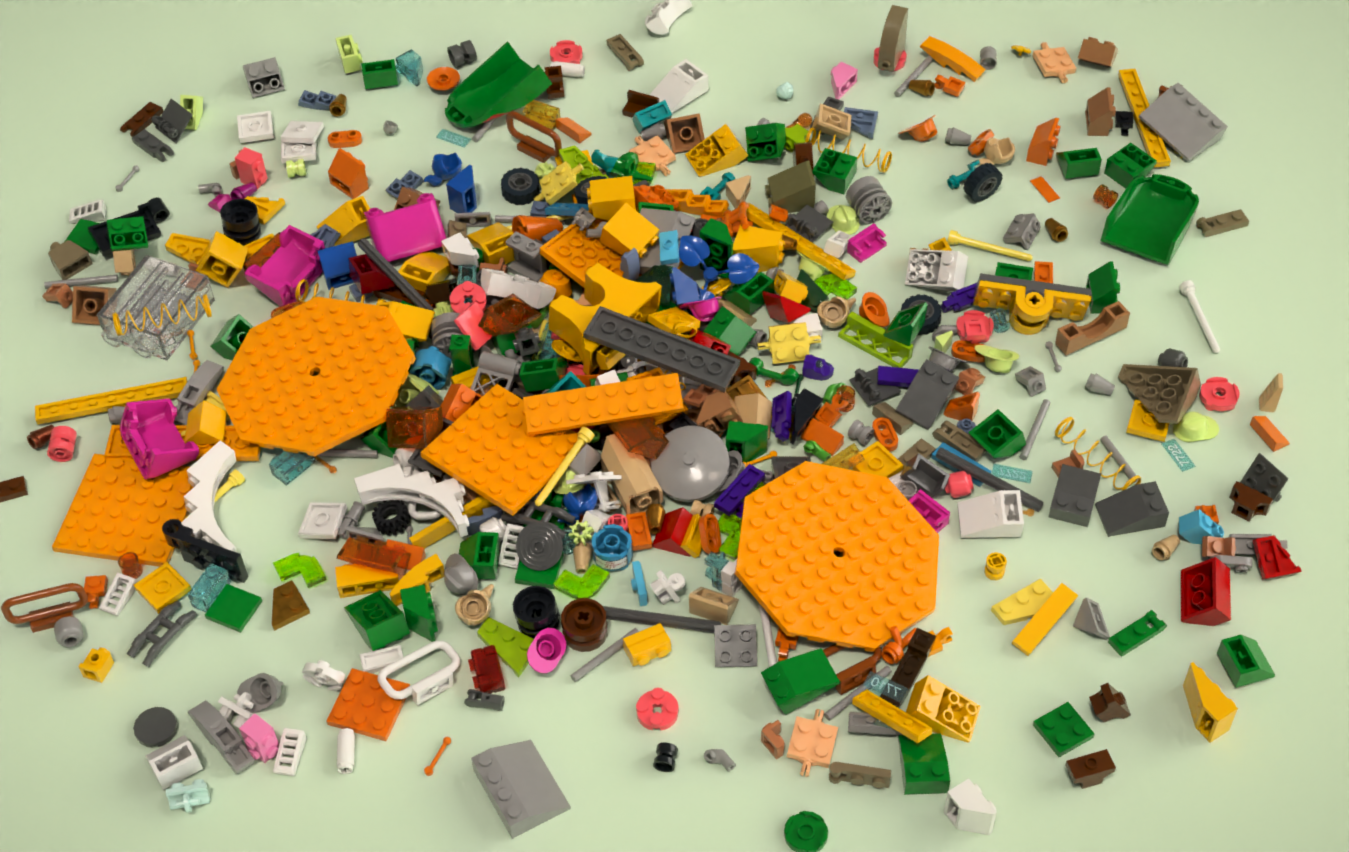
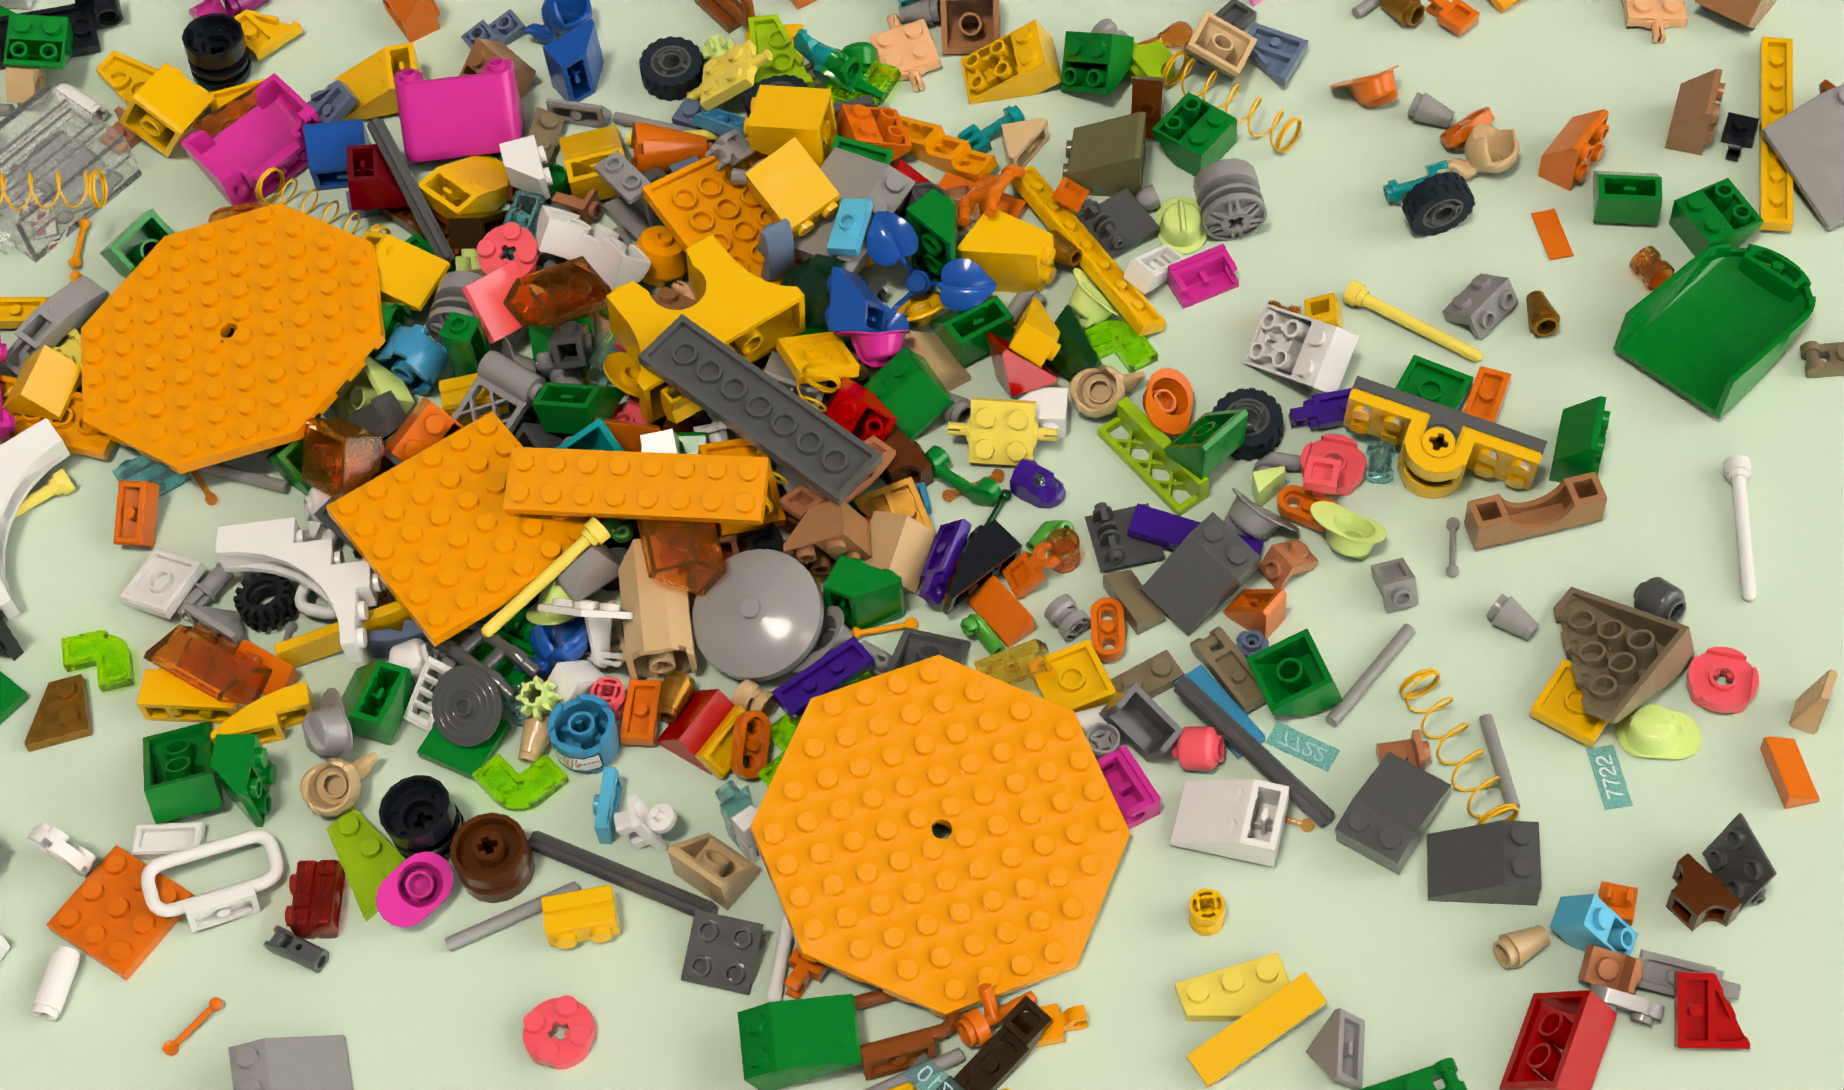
camera: 20 degrees right, 5 degrees up
(292, 484) = (136, 513): none -> orange slope

